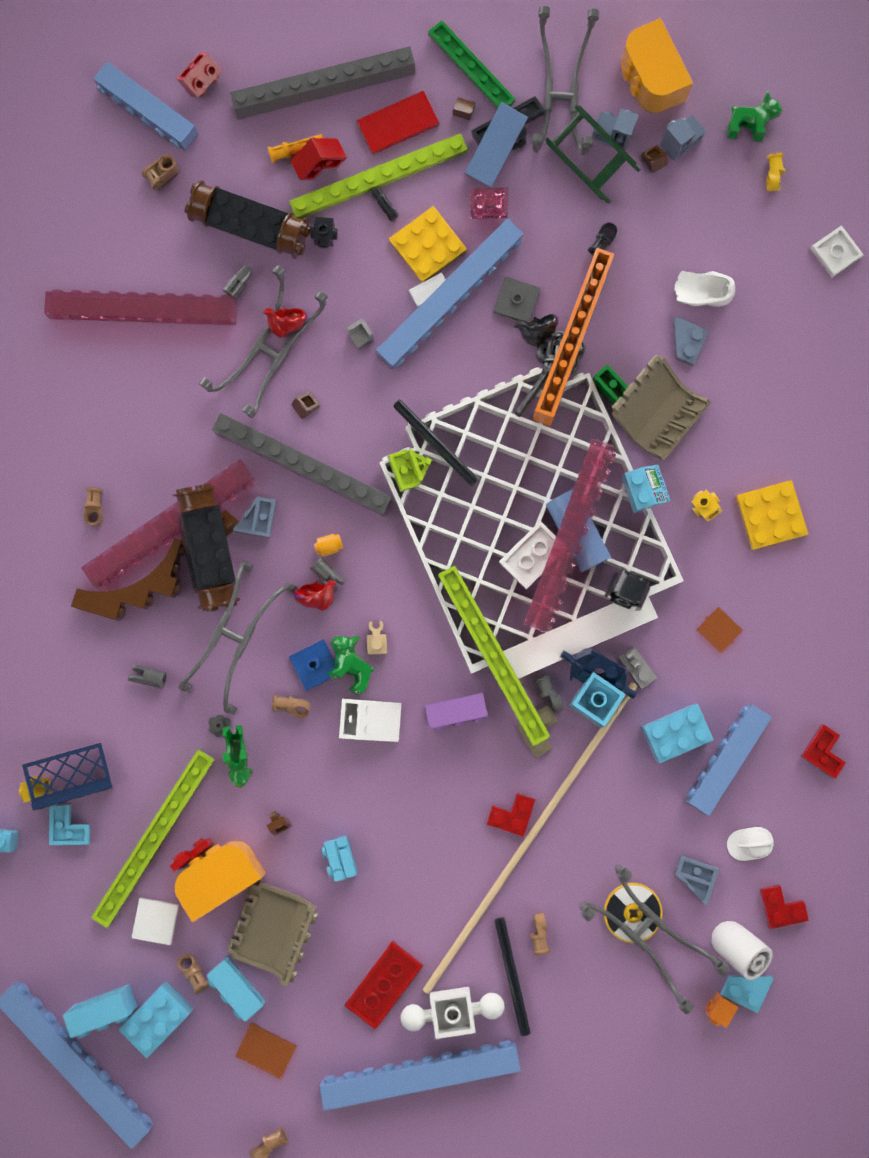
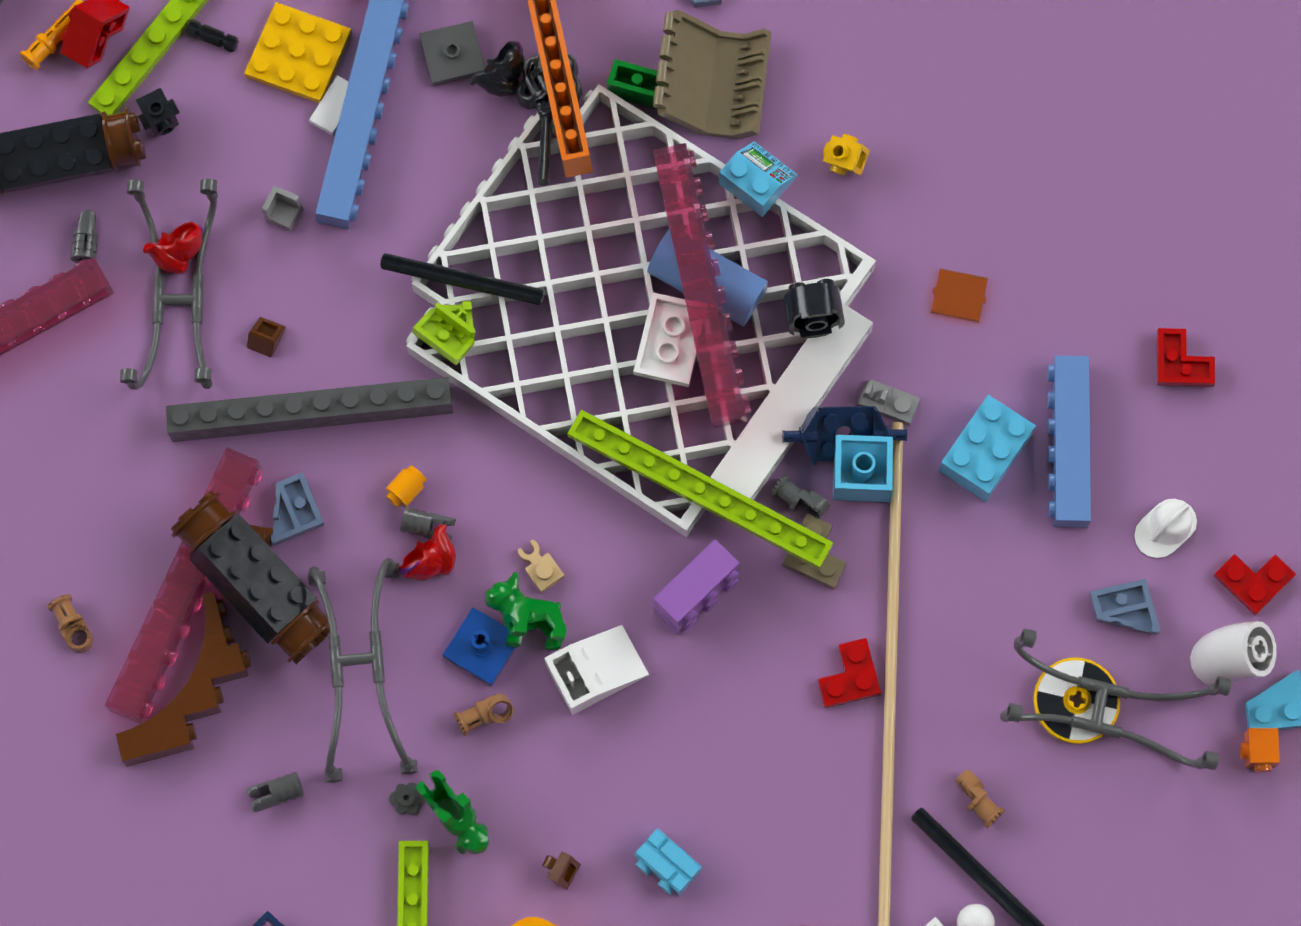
camera: 30 degrees left, 10 degrees down
(771, 515) = (933, 121): yellow plate -> none

